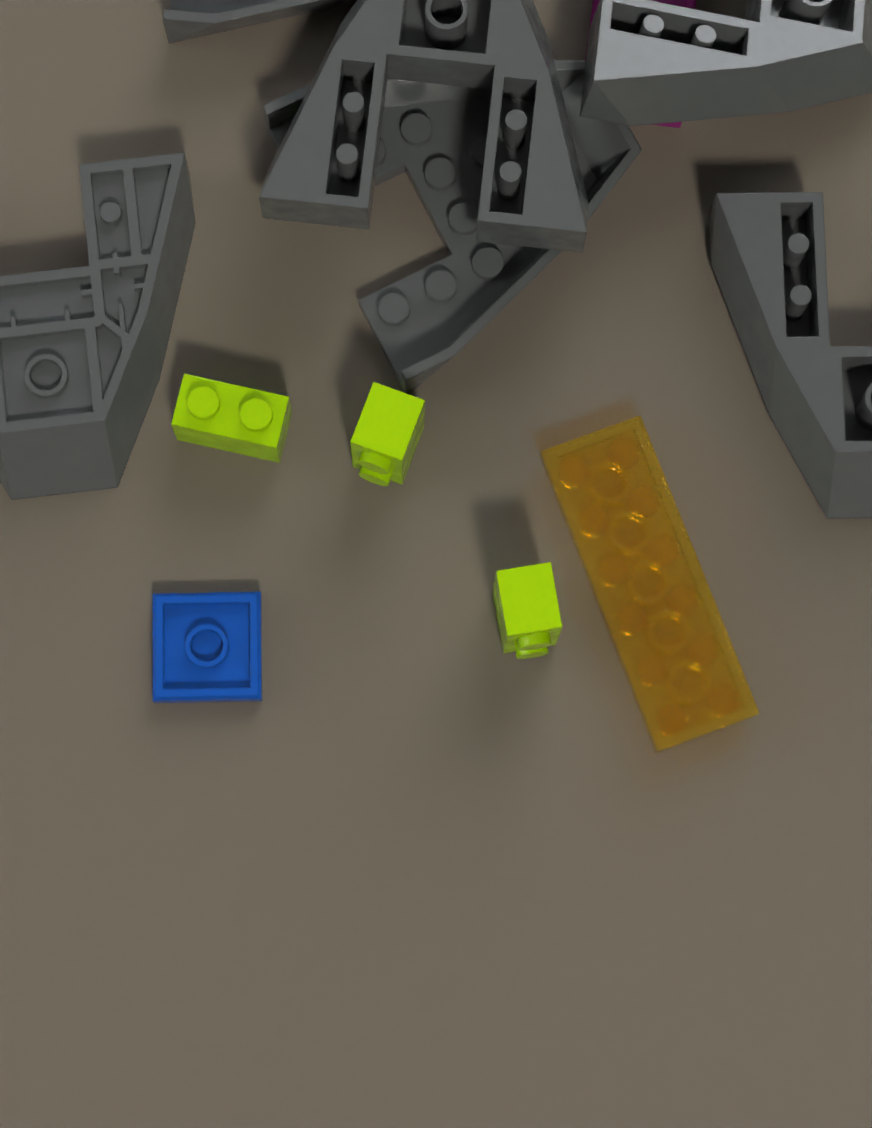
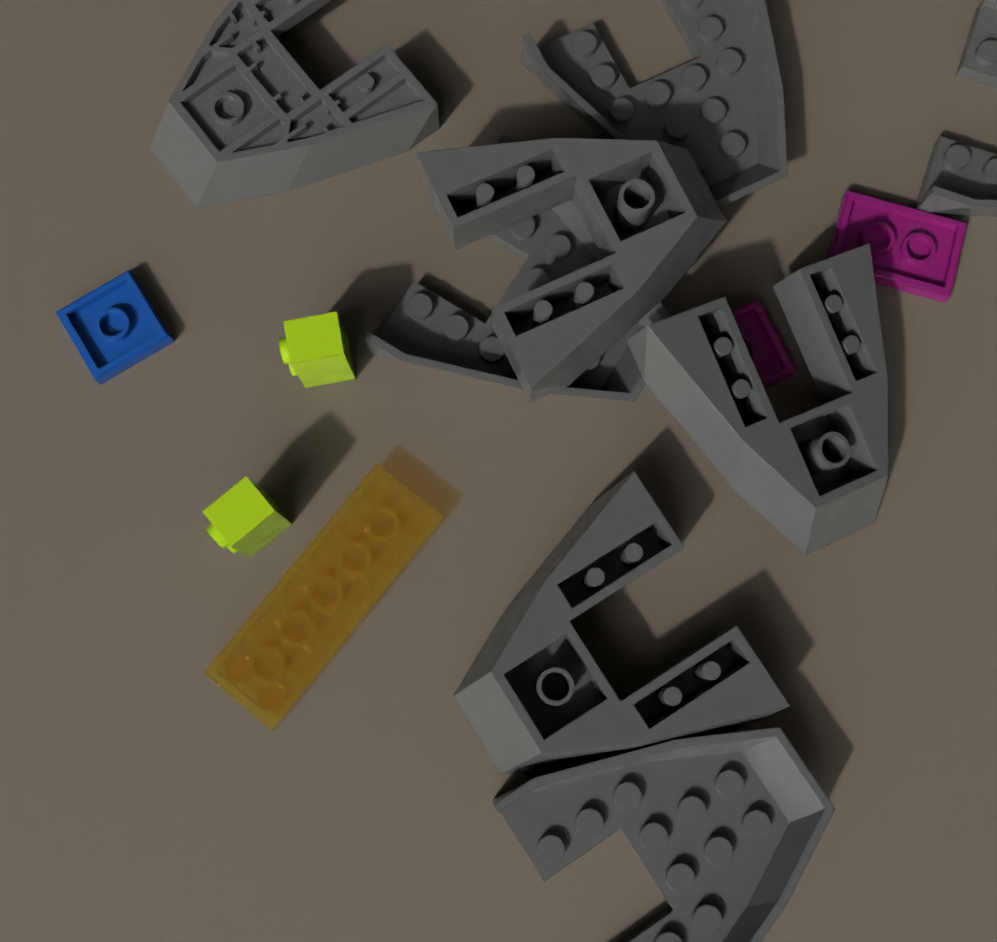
camera: 60 degrees right, 0 degrees up
(231, 418) = (276, 246): lime brick -> none

